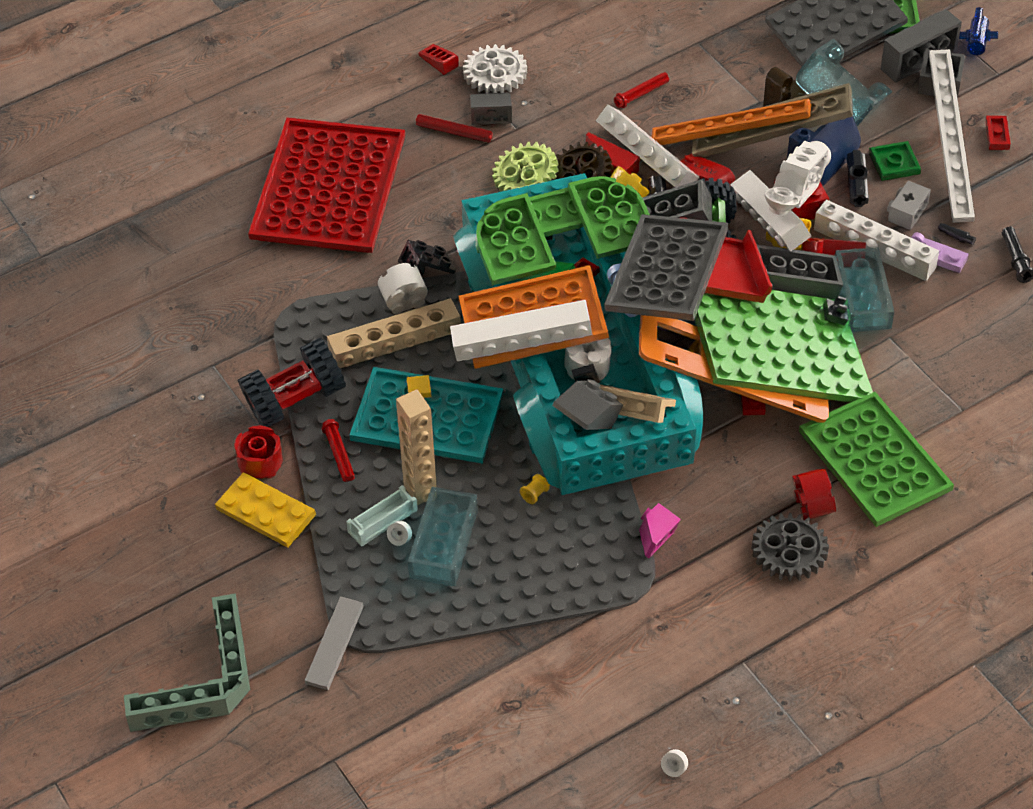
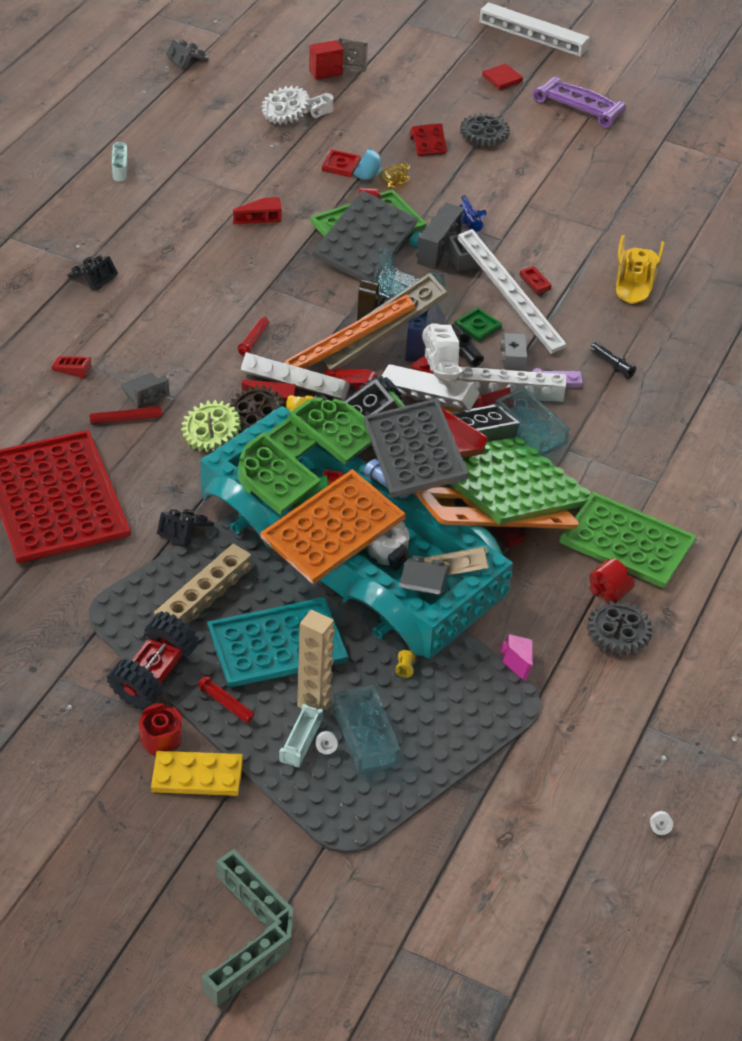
camera: 35 degrees left, 5 degrees down
(334, 643) = (336, 854): light grey tile -> none
(402, 288) = (187, 550): white brick -> none
(421, 384) = (258, 622): yellow tile -> none
(494, 69) = (126, 358): white gear -> none
(521, 330) = (338, 538): white brick -> none
(836, 310) = (527, 443): black tile -> none
(958, 234) = (563, 360): black animal -> none

